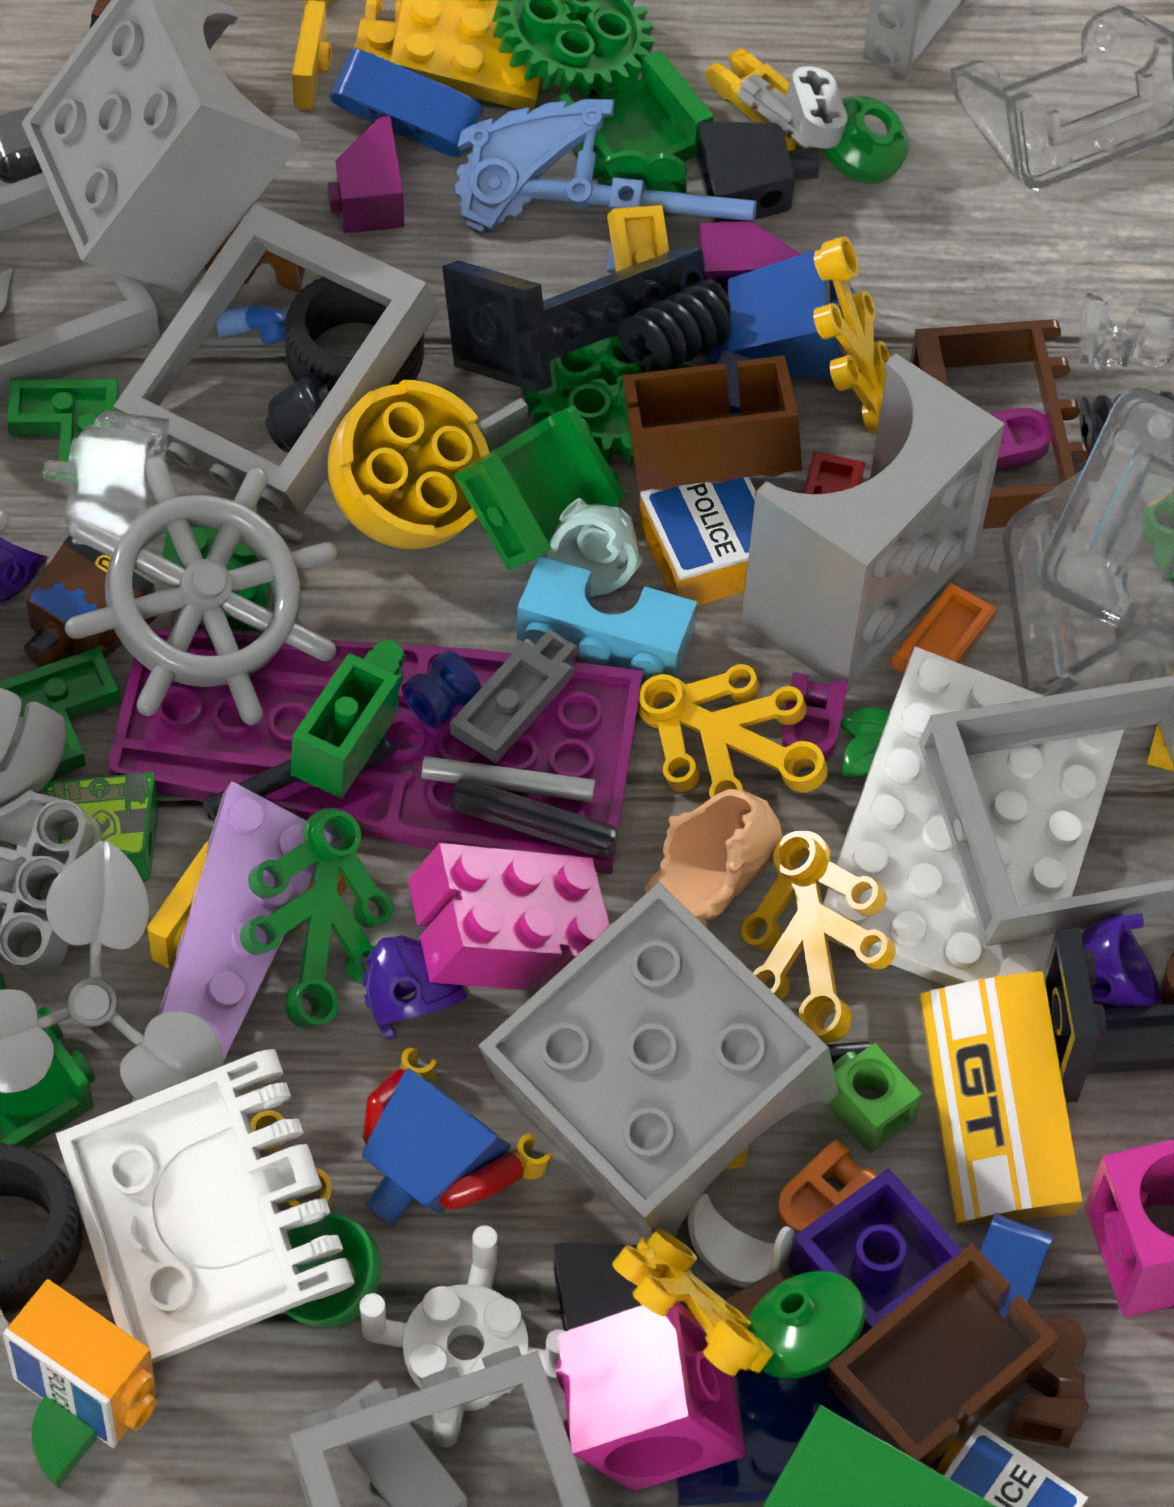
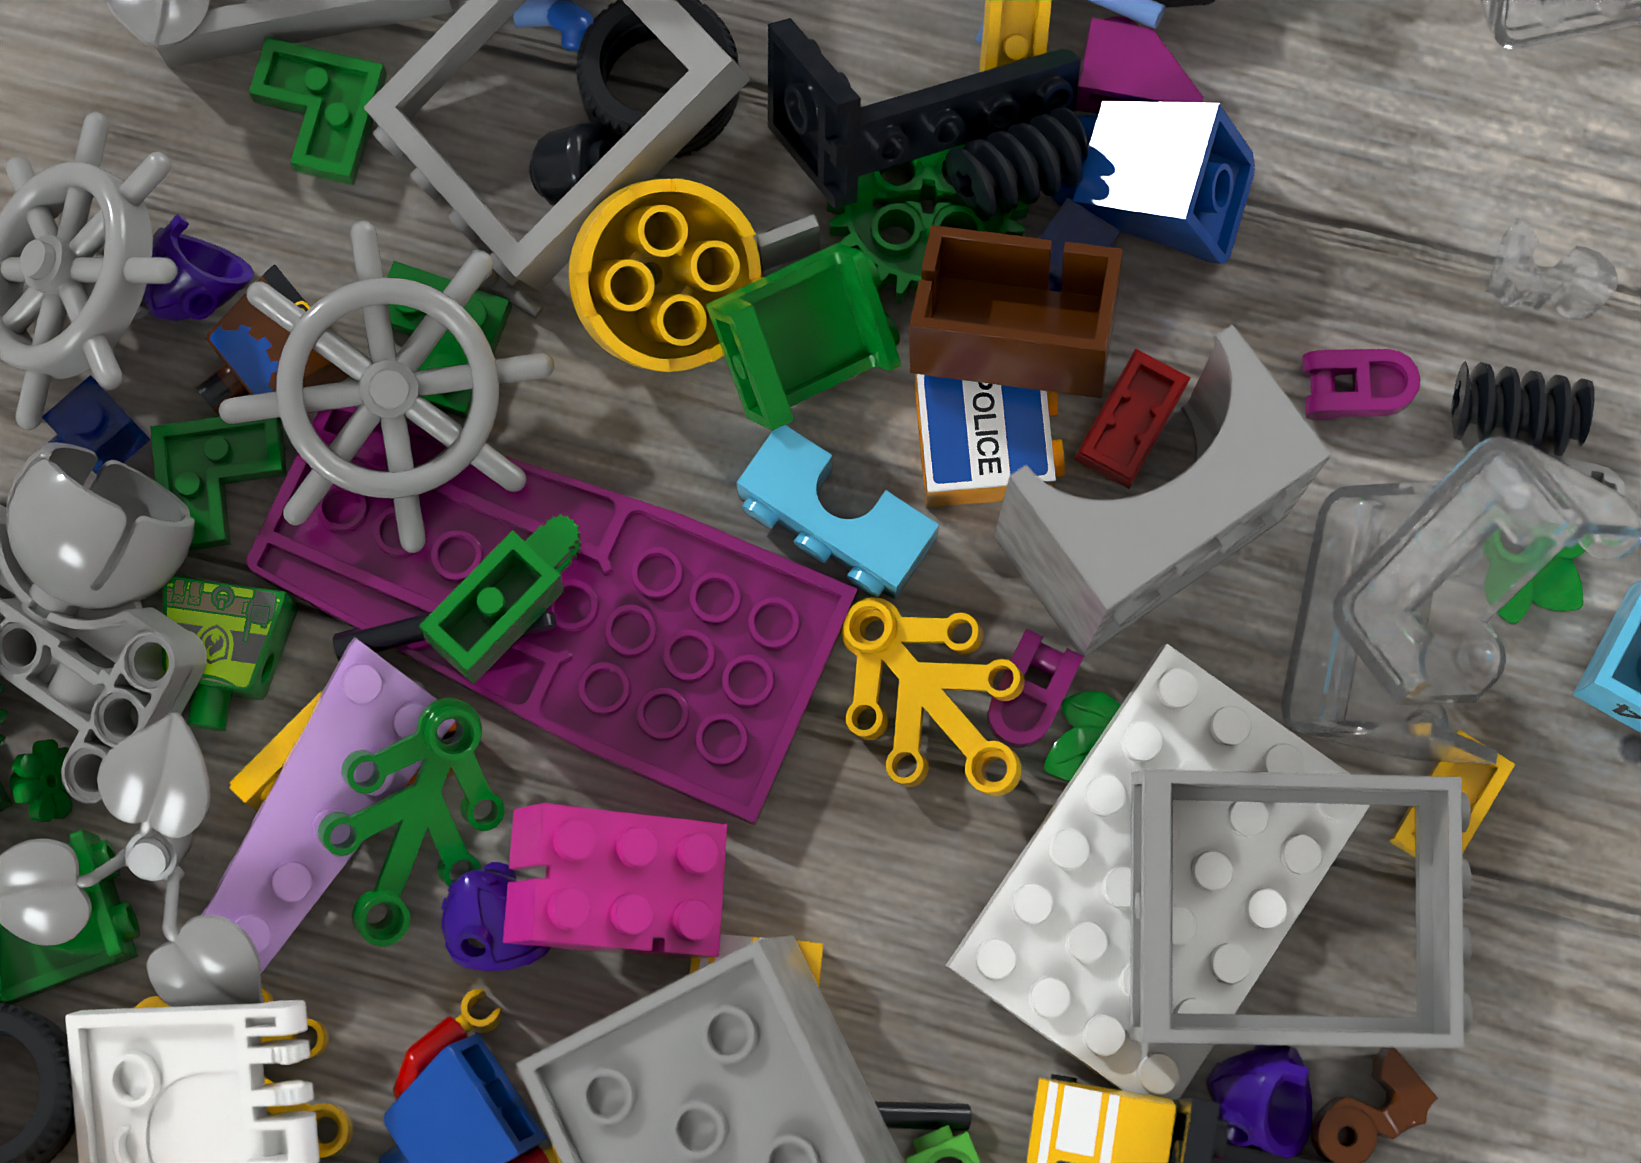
camera: 20 degrees right, 20 degrees up
(111, 469) = (321, 199): clear brick -> none
(441, 689) = (609, 576): clear blue wheel -> none
(509, 779) = (667, 694): light grey bar -> none
(515, 695) = (704, 594): dark grey hinge -> none
(534, 818) = (680, 752): black axle -> none
(598, 541) = (851, 415): light aqua helmet -> none
(717, 851) = (860, 853): light nougat piece -> none
(811, 927) = (945, 971): yellow plant -> none
(855, 332) = (1224, 139): yellow plant -> none
(948, 627) = (1216, 615): orange tile -> none
(1000, 344) = (1317, 243): reddish brown hinge -> none

